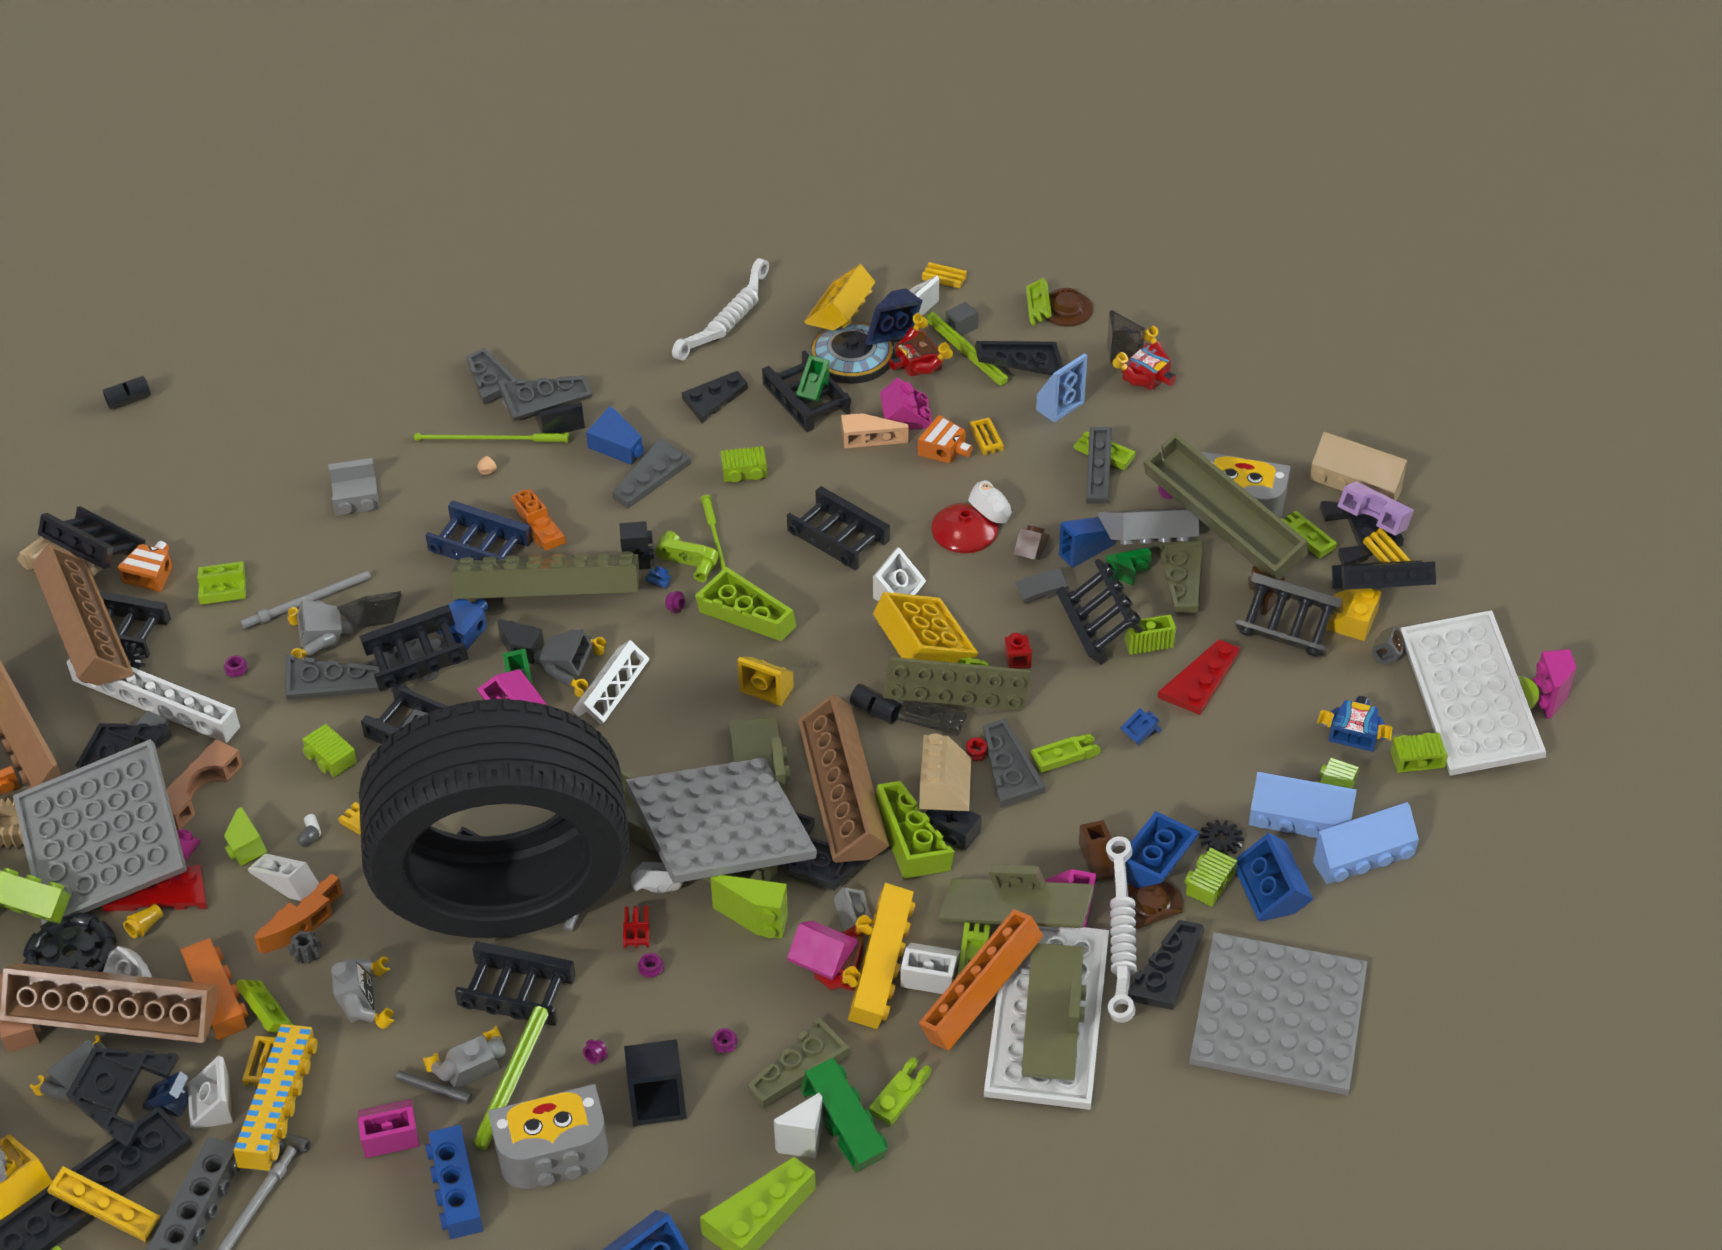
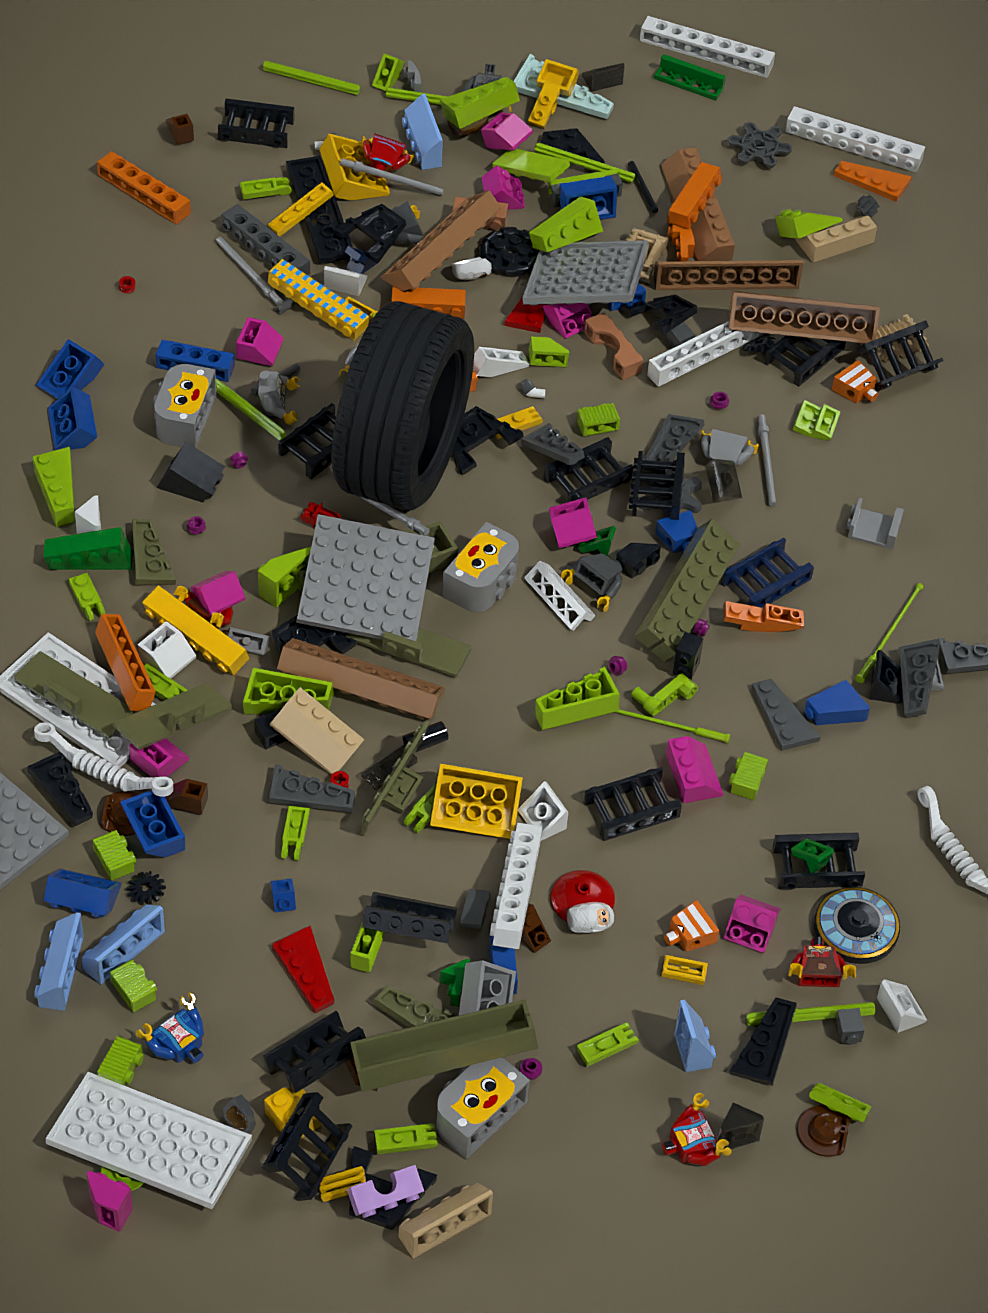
camera: 115 degrees right, 5 degrees up
(140, 922) = (510, 287): yellow cone -> none
(486, 466) = (853, 613): light nougat hinge -> none
(638, 735) = (482, 569): none -> light grey brick
(647, 960) = (285, 514): magenta plate -> none
(659, 576) = (654, 670): blue plate -> none
(711, 395) = (857, 798): black wing -> none
(764, 680) = (494, 677): yellow slope -> none
(767, 505) = (692, 769): none -> dark pink slope
(842, 300) = (923, 938): yellow slope -> none
(869, 430) = (739, 881): light nougat slope -> none
(893, 316) = (867, 952): dark blue slope -> none
(947, 275) = (941, 1041): yellow tile -> none
(1009, 542) = (516, 890): none -> white brick
(1016, 646) = (416, 854): red brick -> none
(1099, 465) = (588, 1024): dark grey tile -> none

